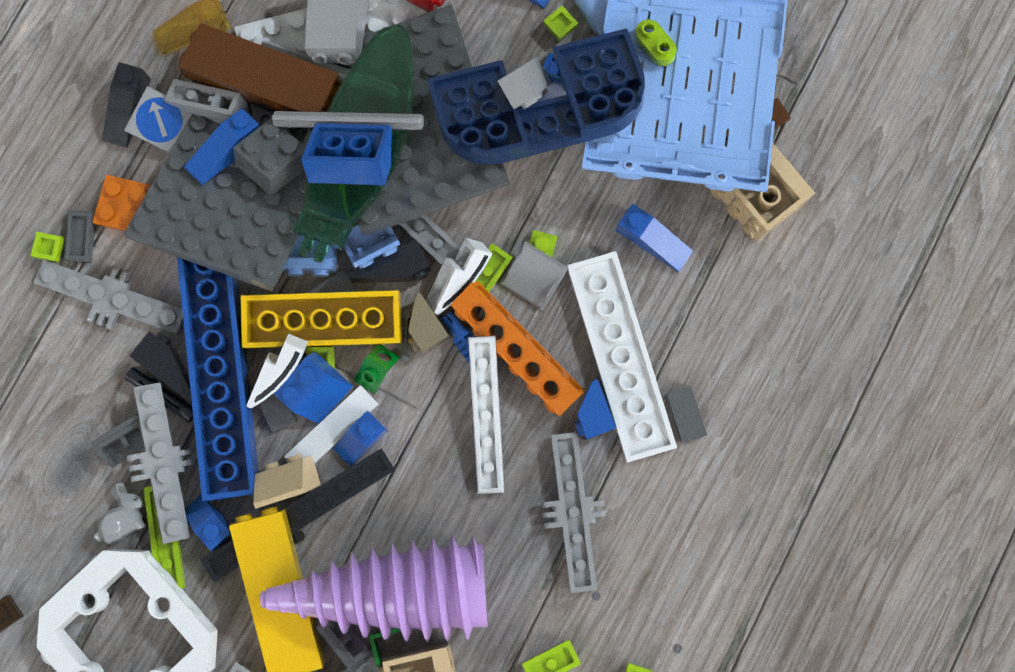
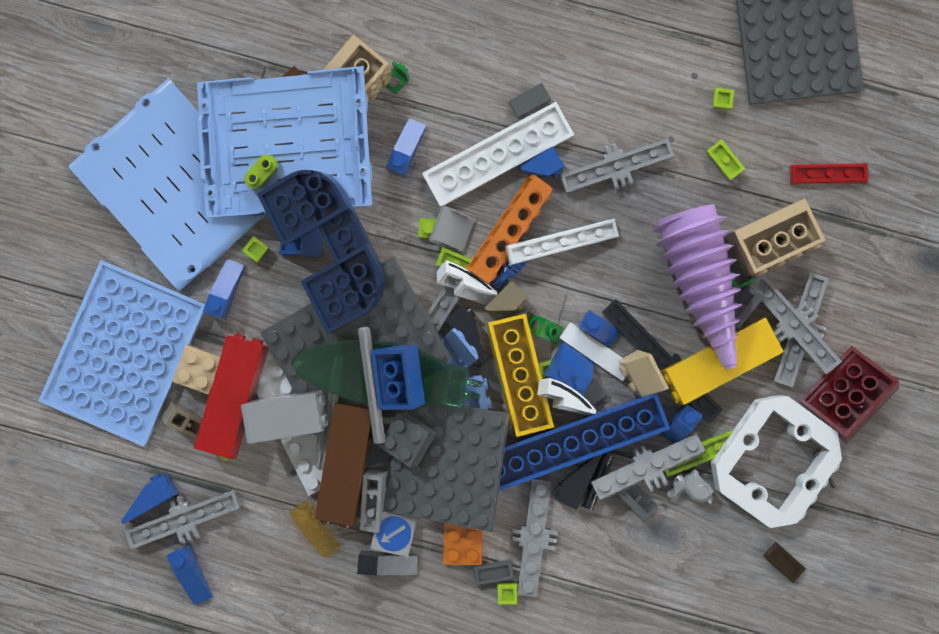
camera: 100 degrees left, 5 degrees up
(218, 149) = (407, 477): blue slope -> none
(525, 84) = (316, 259): light grey brick -> none
(756, 252) = (401, 72): none -> green bracket

